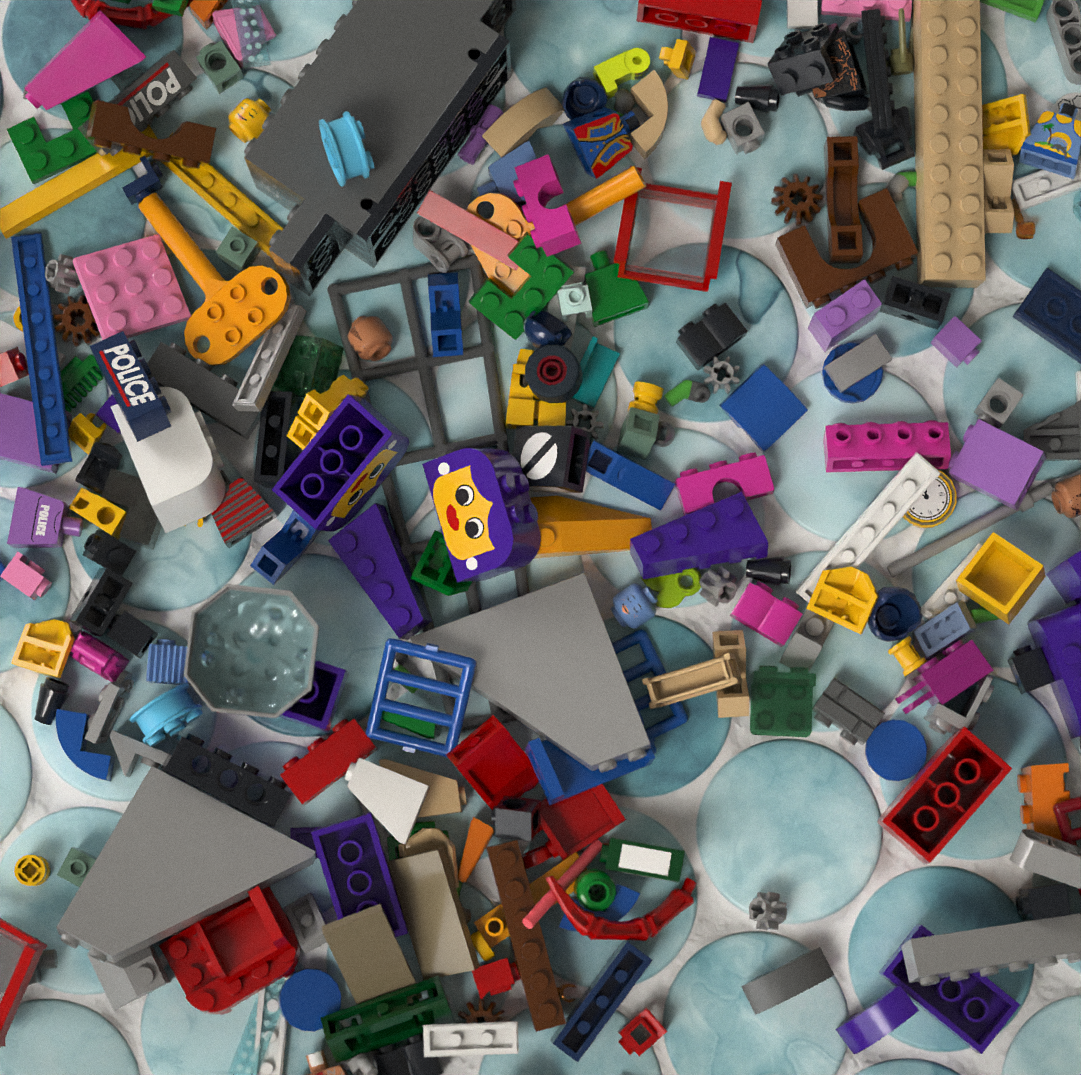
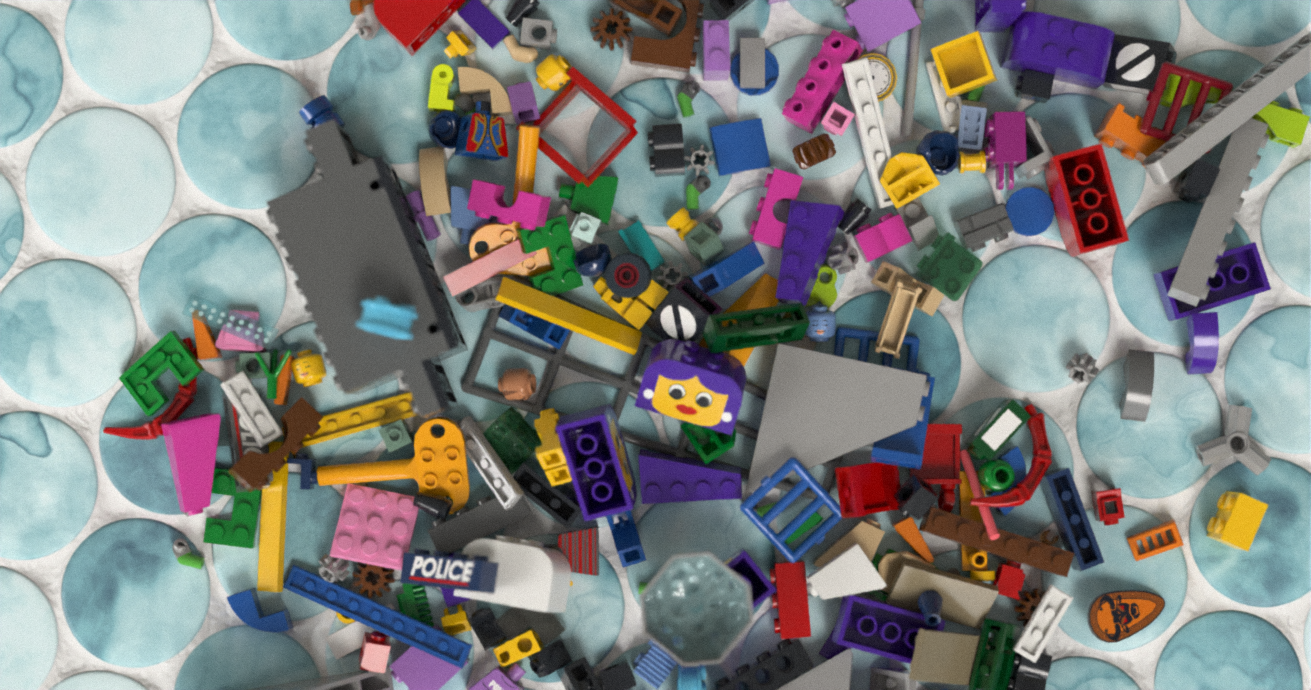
camera: 65 degrees left, 5 degrees up
(171, 87) = (251, 409): none -> white tile
(191, 331) = (433, 504): none -> black cone
(221, 103) = (284, 382): none -> orange tile
(229, 86) = (273, 375): none -> green plant
(412, 907) = (931, 605): none -> dark blue cone
(473, 342) = (568, 316): none -> yellow tile
(584, 537) = (756, 327): none -> dark green brick
(662, 159) = (523, 102): none -> medium lavender brick
(712, 168) = (553, 72): none -> yellow head
(778, 320) = (686, 96): none -> arm
(808, 484) = (814, 151): none -> reddish brown gear
(856, 486) = (837, 119): none -> bright pink brick

